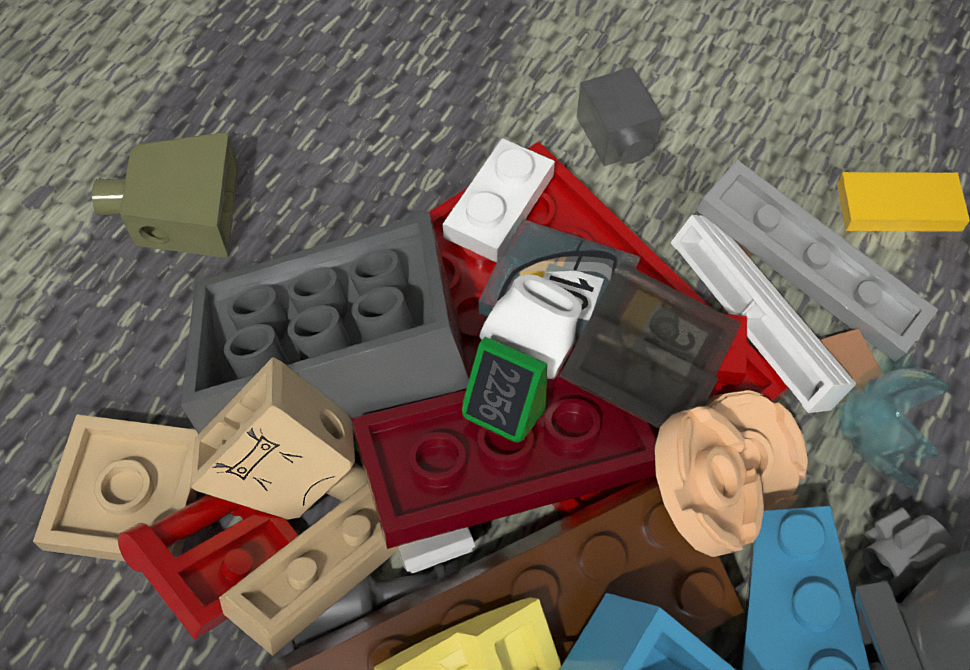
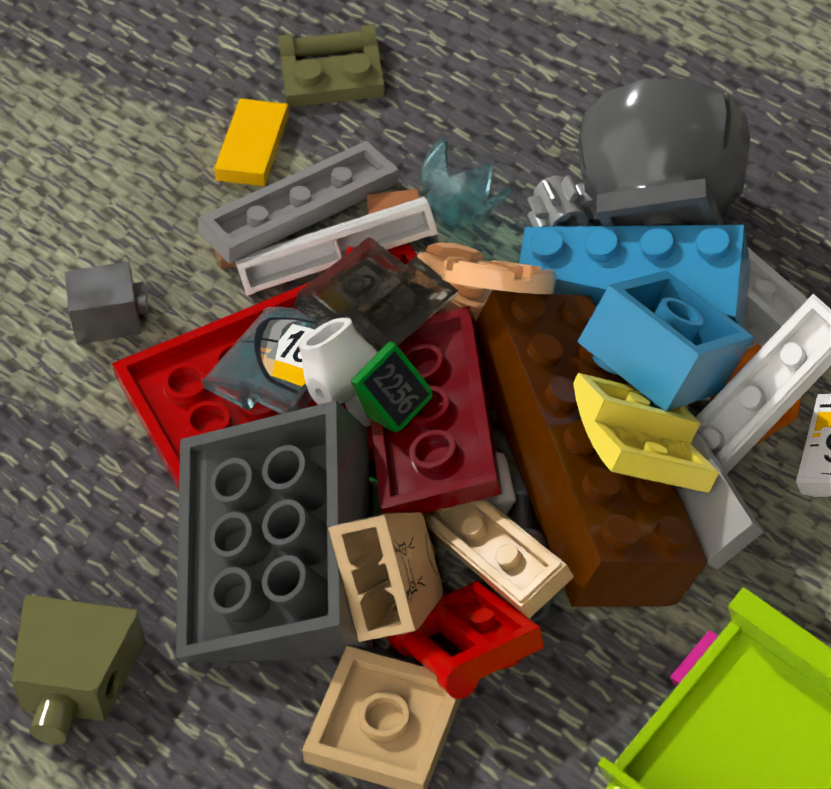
camera: 75 degrees left, 10 degrees down
(498, 199) = (173, 394): white plate -> none

